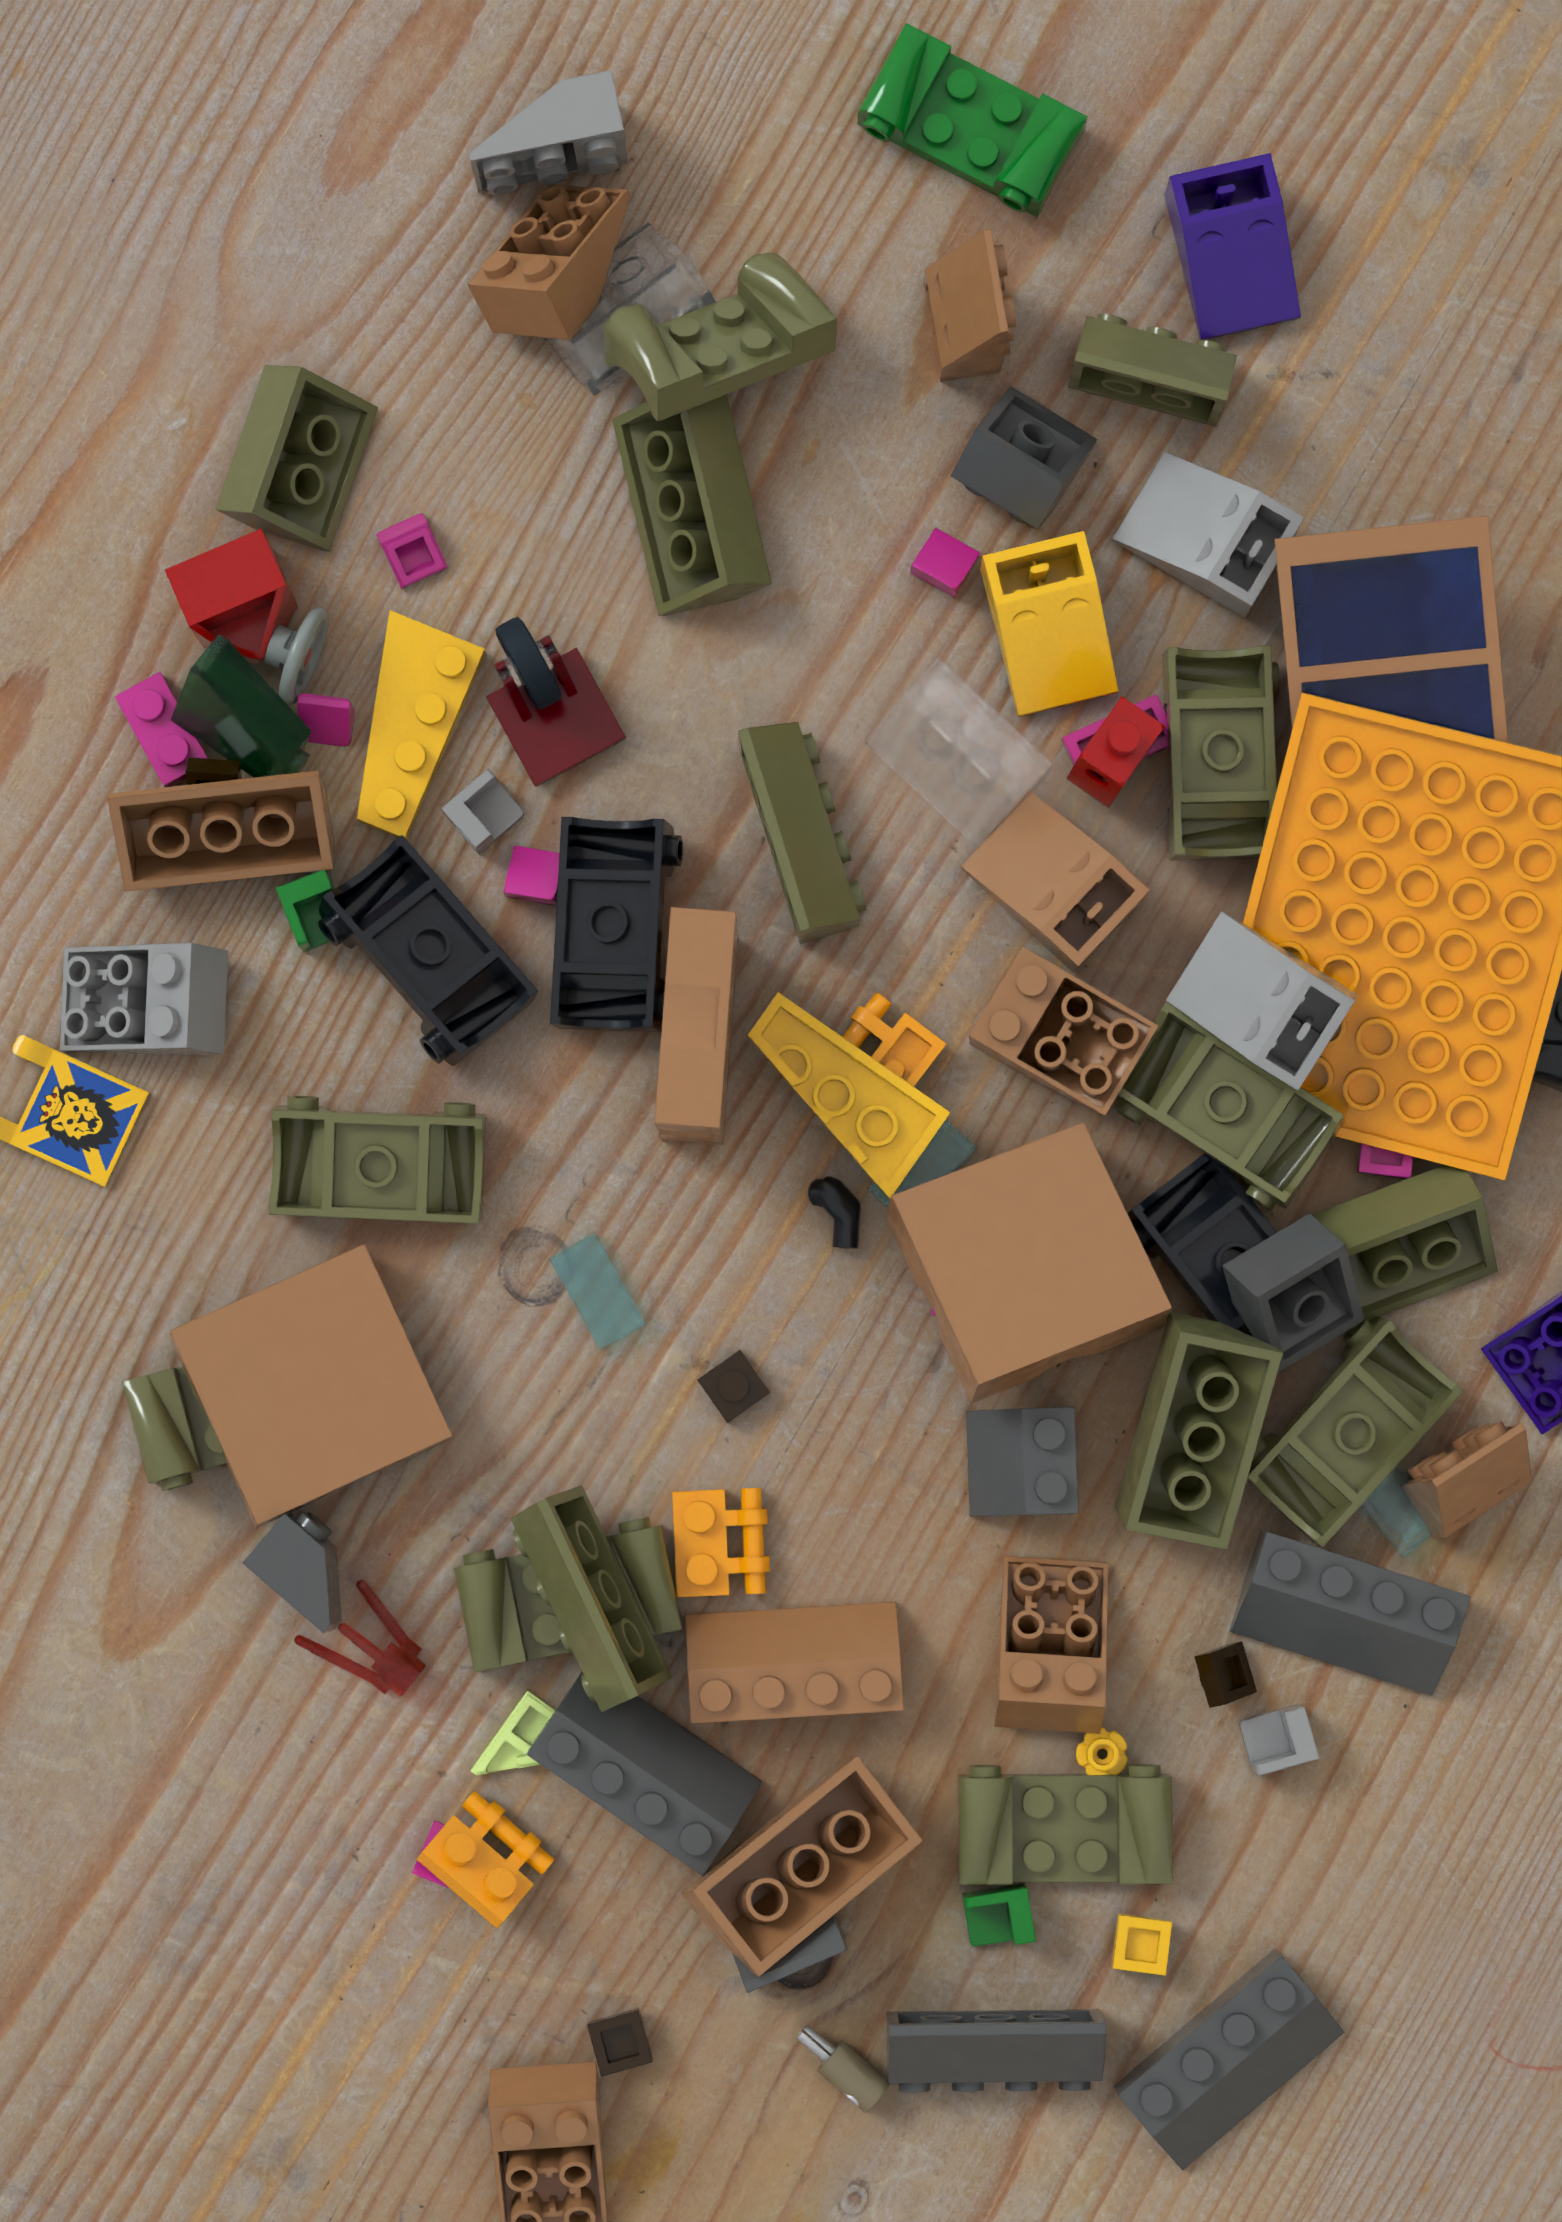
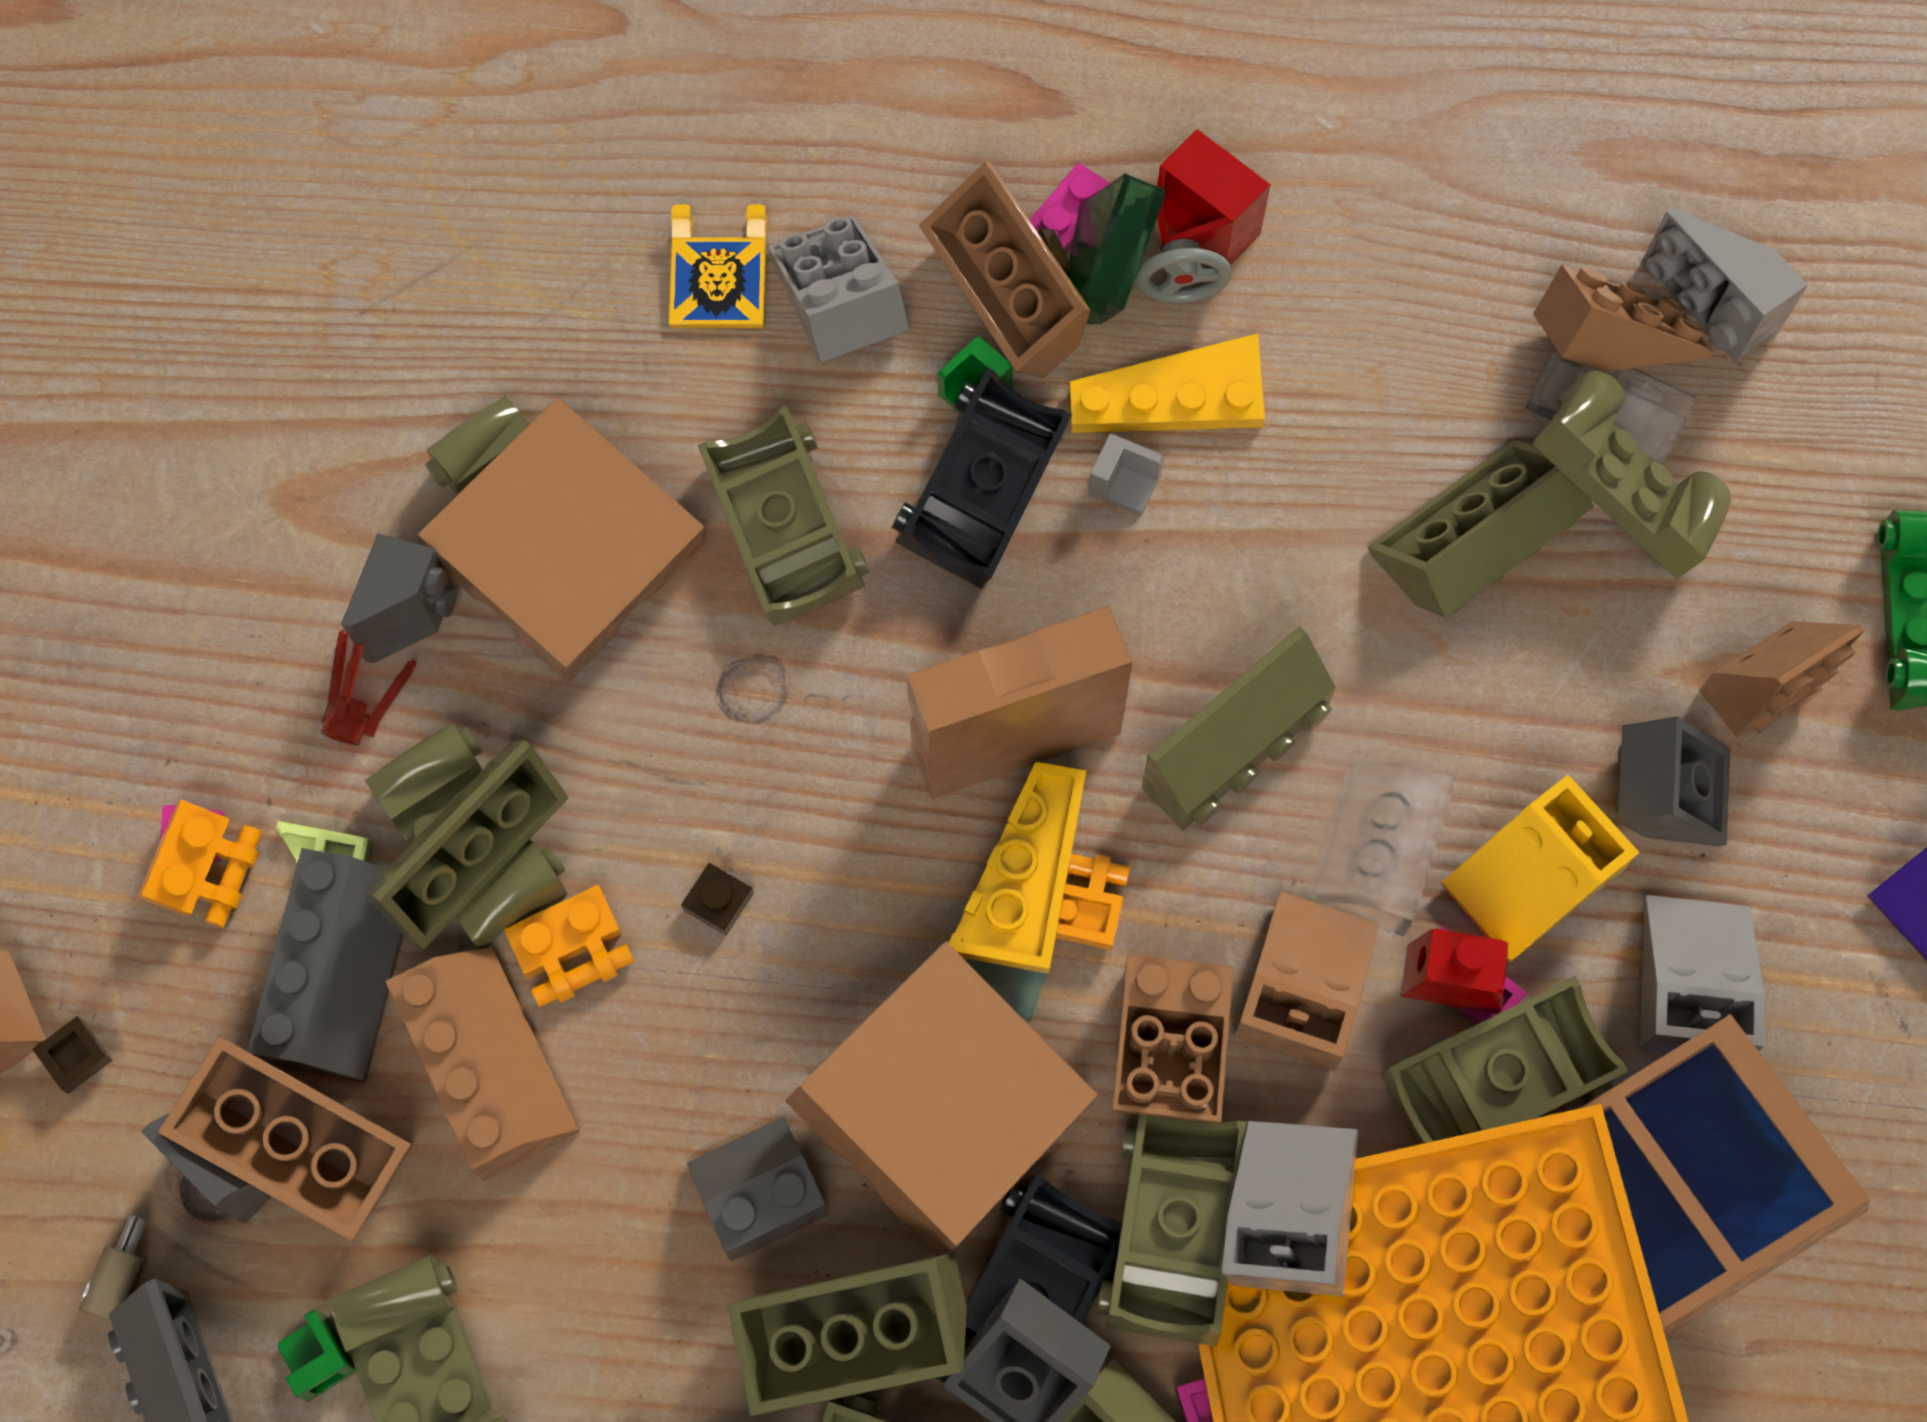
camera: 65 degrees right, 15 degrees down
(297, 456) = (1347, 212): olive slope -> none
(327, 718) = (1141, 323): dark pink slope -> none
(411, 550) = (1316, 333): dark pink slope -> none
(532, 875) = (1091, 541): dark pink slope -> none
(549, 705) = (1245, 484): dark red plate -> none
(597, 1291) = (752, 747): clear light blue tile -> none
(611, 923) = (1121, 576): black piece -> none
(842, 1206) = (922, 920): black arm -> none
(944, 562) = (1541, 758): dark pink slope -> none
(1052, 1645) = (592, 1291): medium nougat slope -> none
(1114, 1745) = (522, 1392): yellow plate -> none
(1152, 369) = (1816, 858): olive slope -> none

